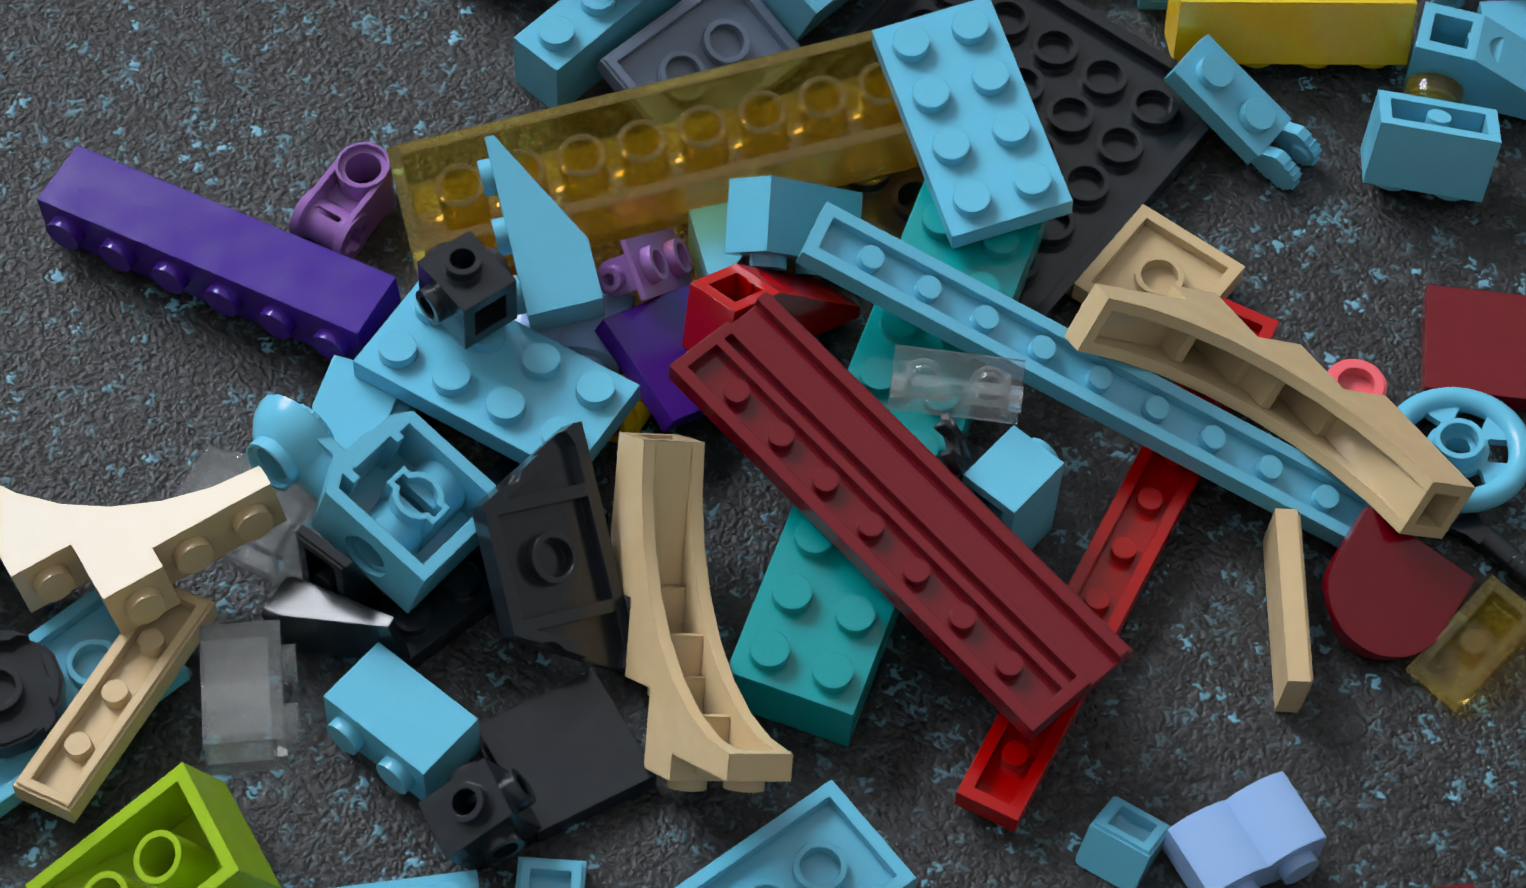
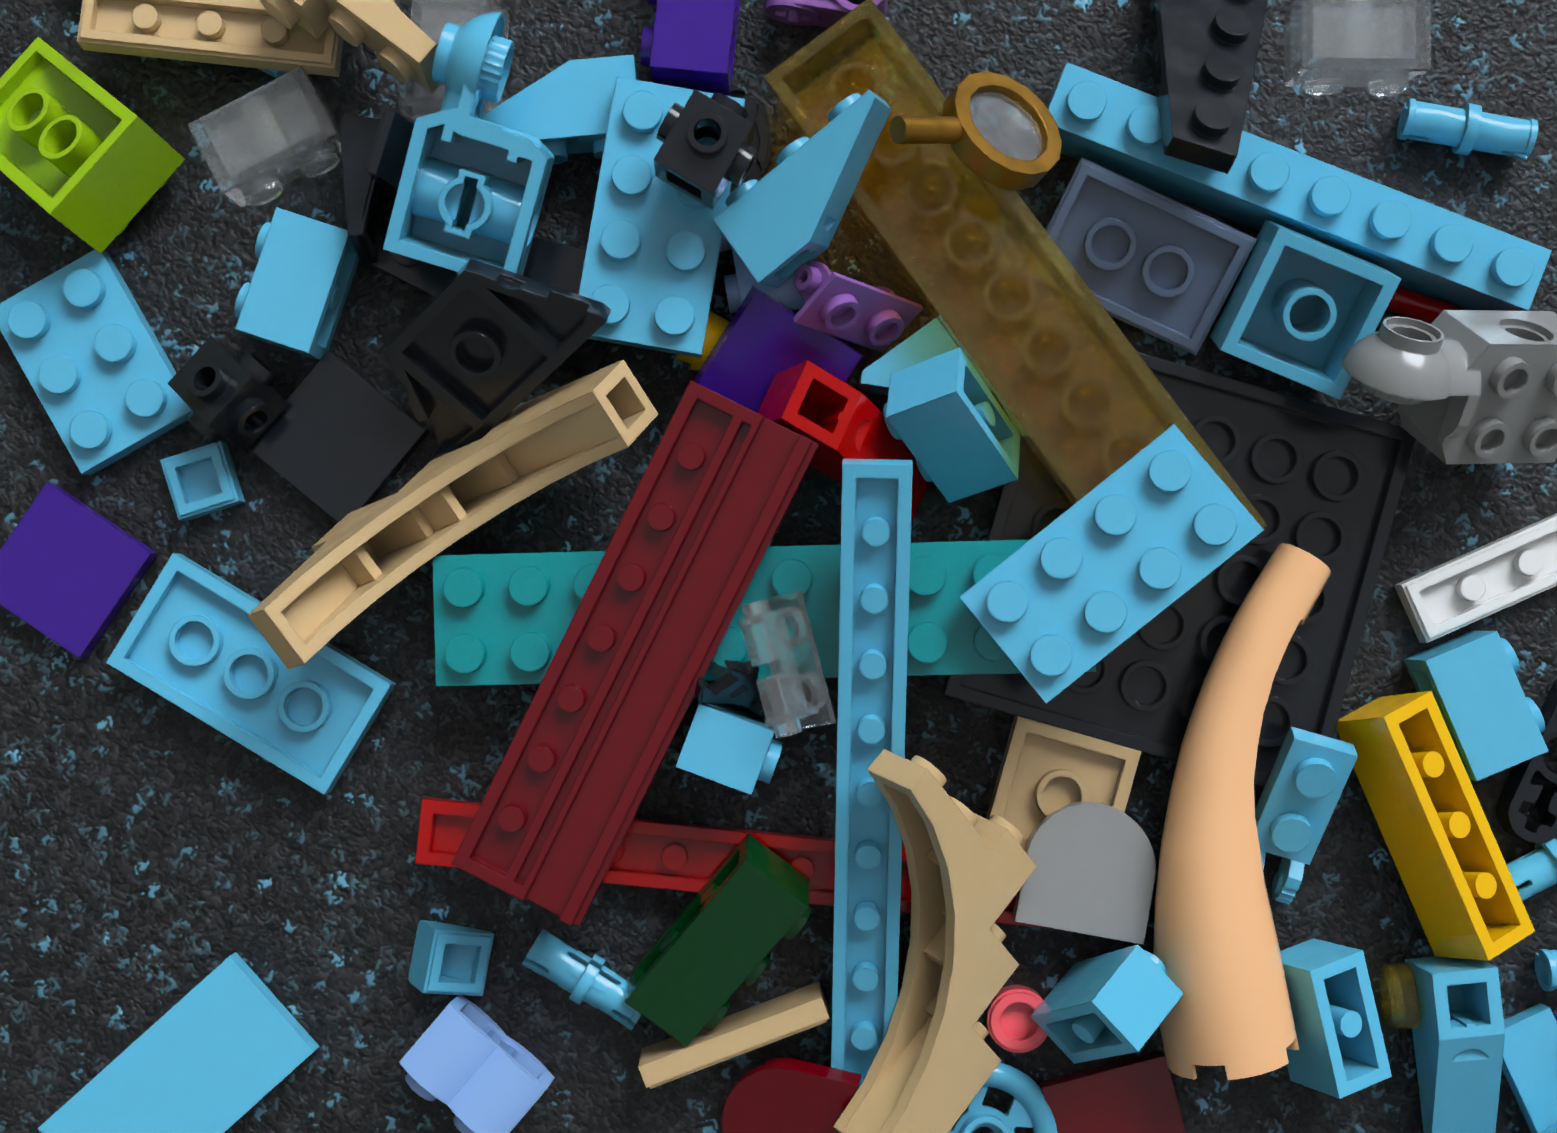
camera: 75 degrees right, 30 degrees up
(553, 90) = (993, 130): none -> pearl gold piece
(1188, 723) = (582, 977): none -> medium azure pin
(1191, 575) = (719, 941): none -> dark green brick
(1243, 263) = (1089, 873): none -> light grey tile
(1319, 189) = (1211, 887): none -> light nougat brick
(1361, 289) = (1108, 1004): none -> medium azure brick

